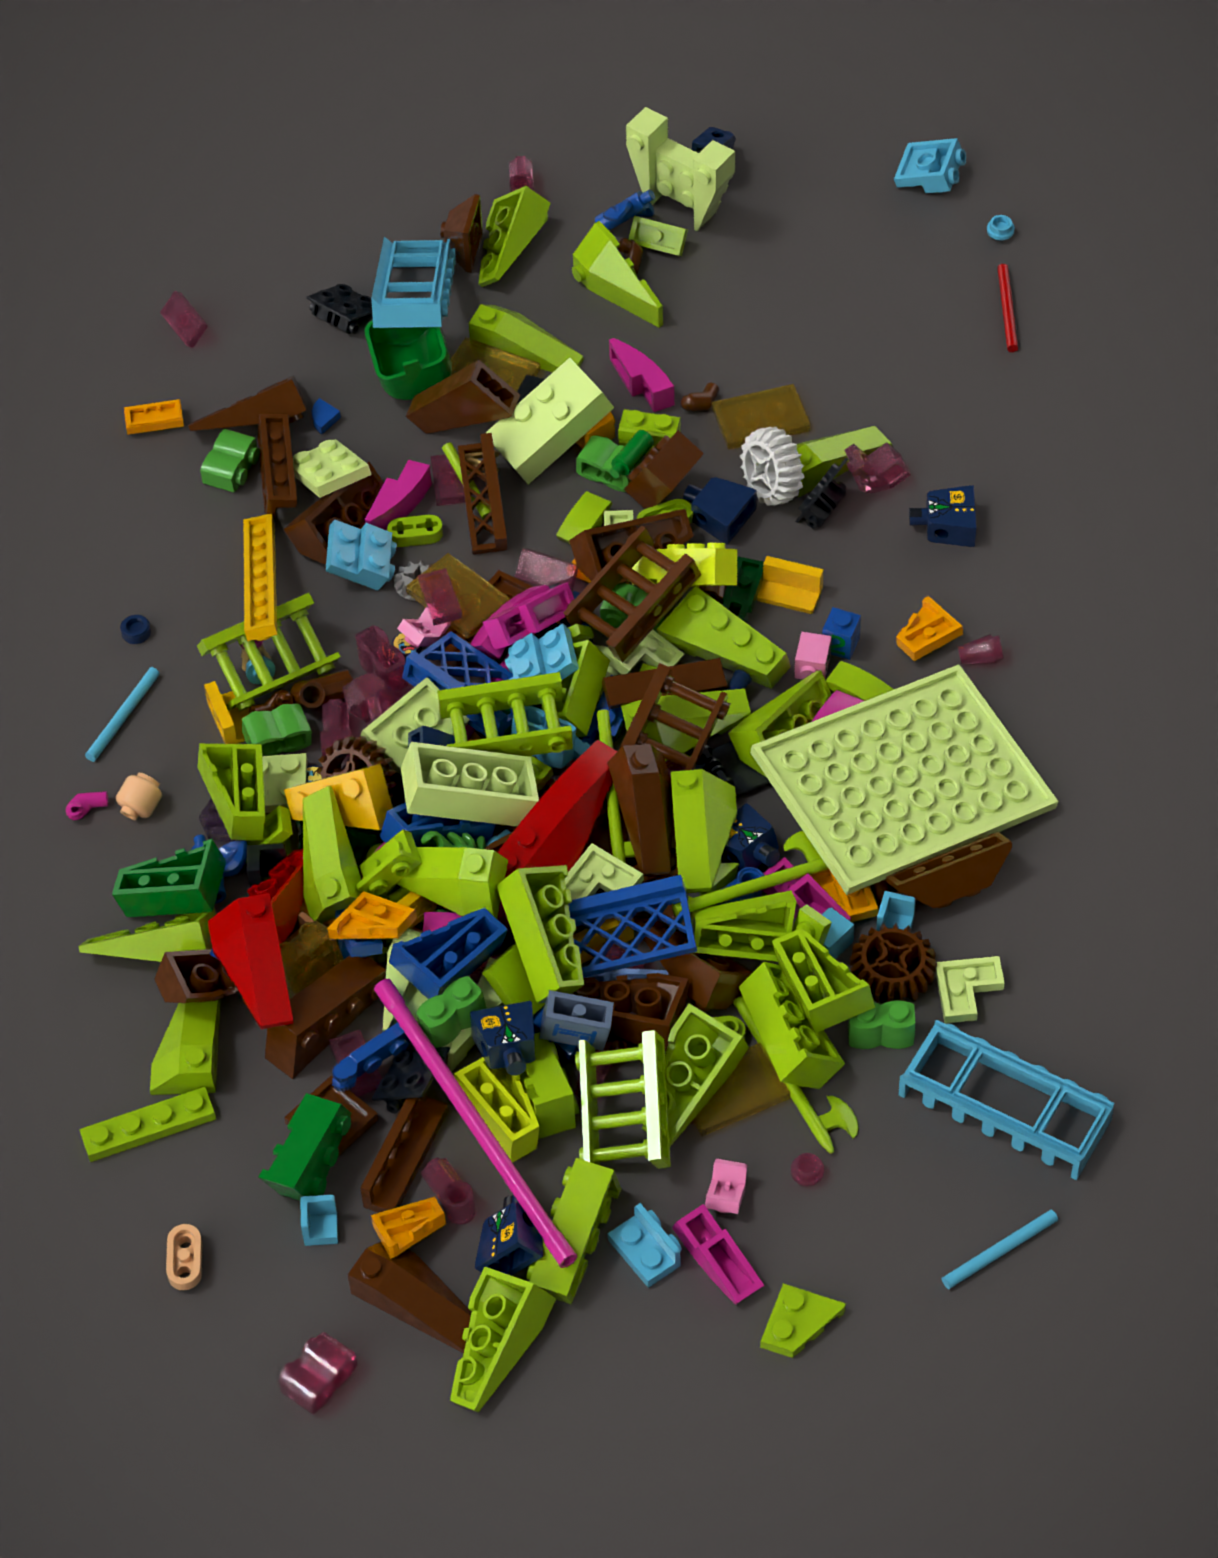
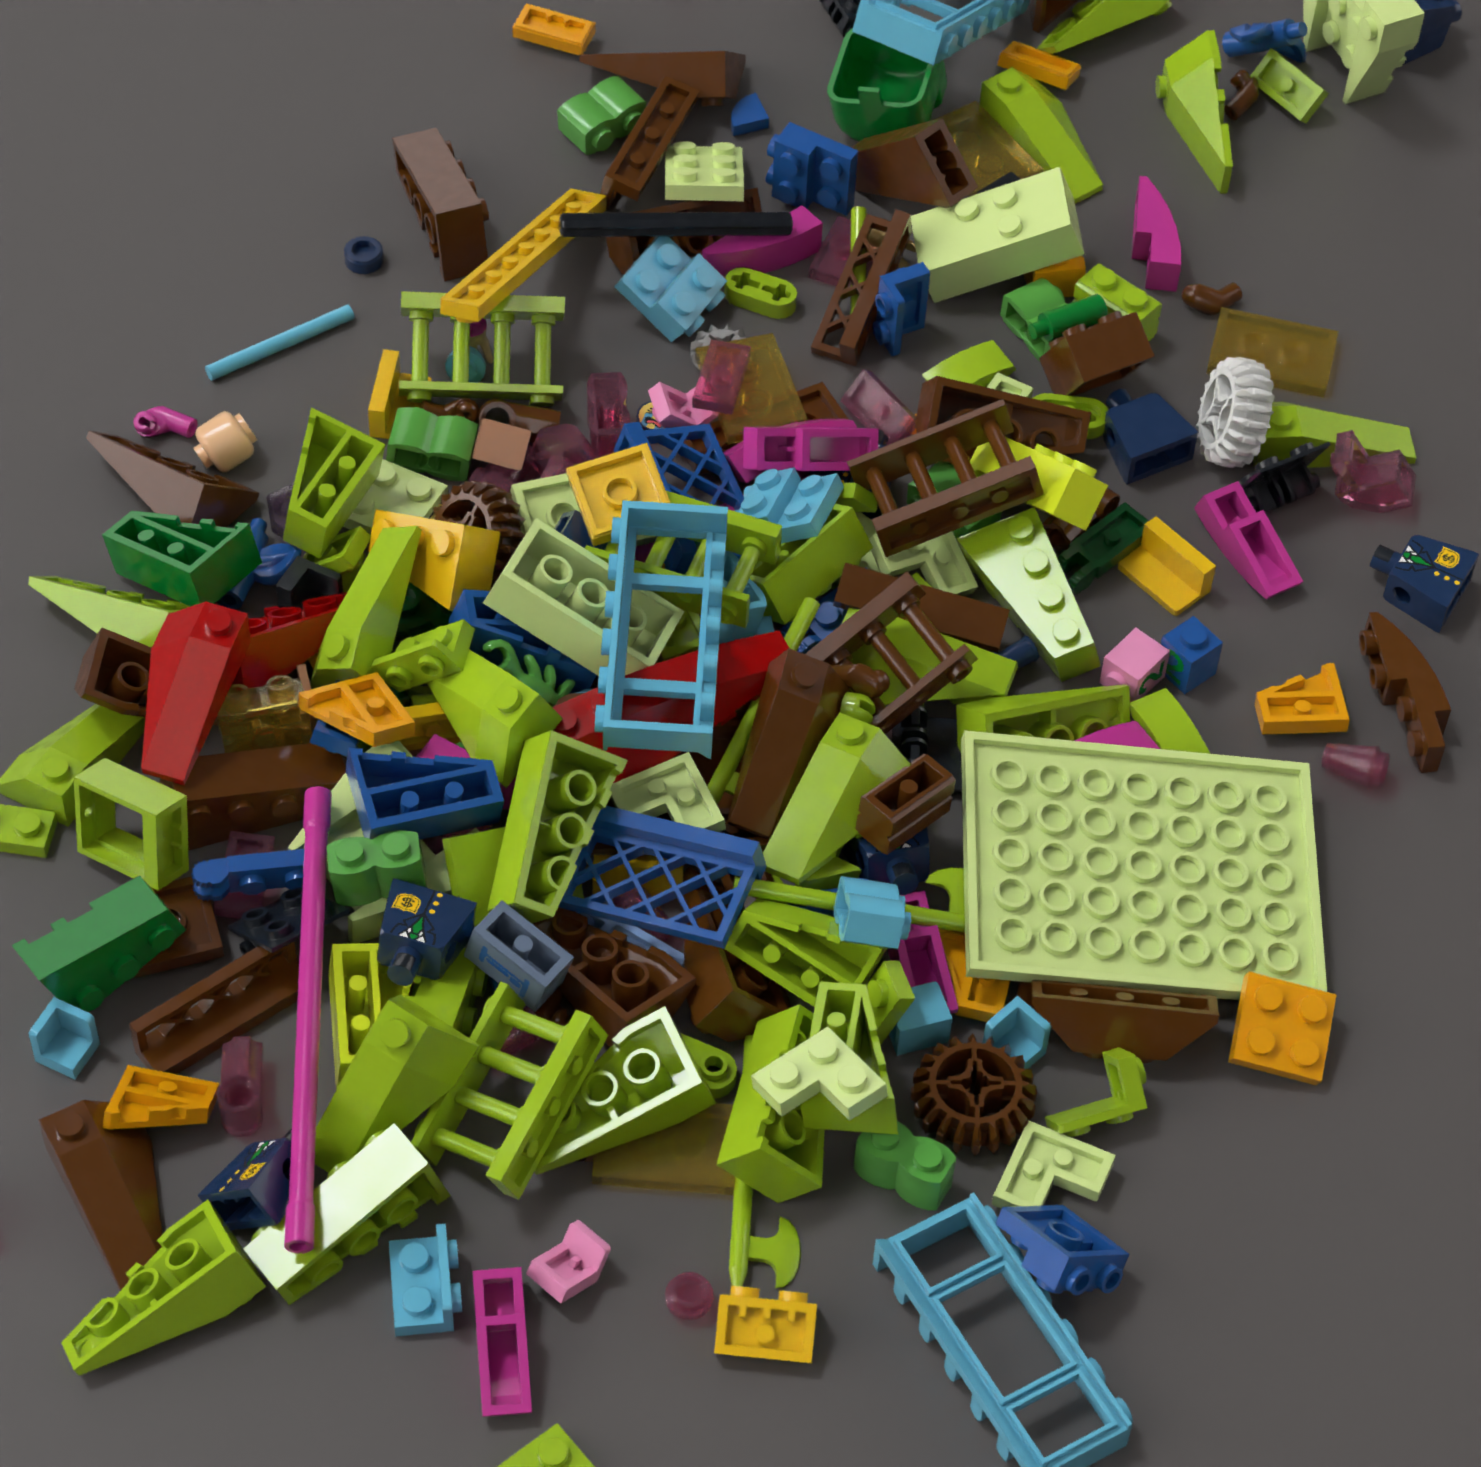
camera: 25 degrees right, 0 degrees up
(124, 844) = (174, 485): none -> wedge
(167, 567) = (443, 201): none -> reddish brown wedge
(269, 1087) = (164, 846): none -> lime window
(326, 709) = (501, 444): none -> nougat panel
(341, 510) = (675, 224): none -> black axle
(398, 432) = (812, 170): none -> blue plate
(446, 701) = (610, 479): none -> yellow tile
(489, 294) = (1040, 65): none -> light orange tile
(517, 496) = (901, 305): none -> blue bracket
(523, 693) = (664, 521): none -> medium azure window
(553, 1133) = (393, 1079): none -> lime wedge
(669, 744) = (863, 679): none -> reddish brown arm
(675, 763) = (858, 706): none -> lime hinge
(747, 808) = (905, 804): none -> reddish brown brick
(773, 884) = (871, 913): none -> medium azure brick
(816, 987) = (820, 1066): none -> yellowish green plate
(827, 544) = (1248, 540): none -> dark pink slope
(865, 1163) = (765, 1326): none -> yellow bracket
(978, 584) = (1411, 684): none -> reddish brown slope
(981, 918) = (1125, 1079): none -> lime bracket
(1012, 1025) = (1063, 1249): none -> blue plate
(1044, 831) = (1282, 1028): none -> light orange plate

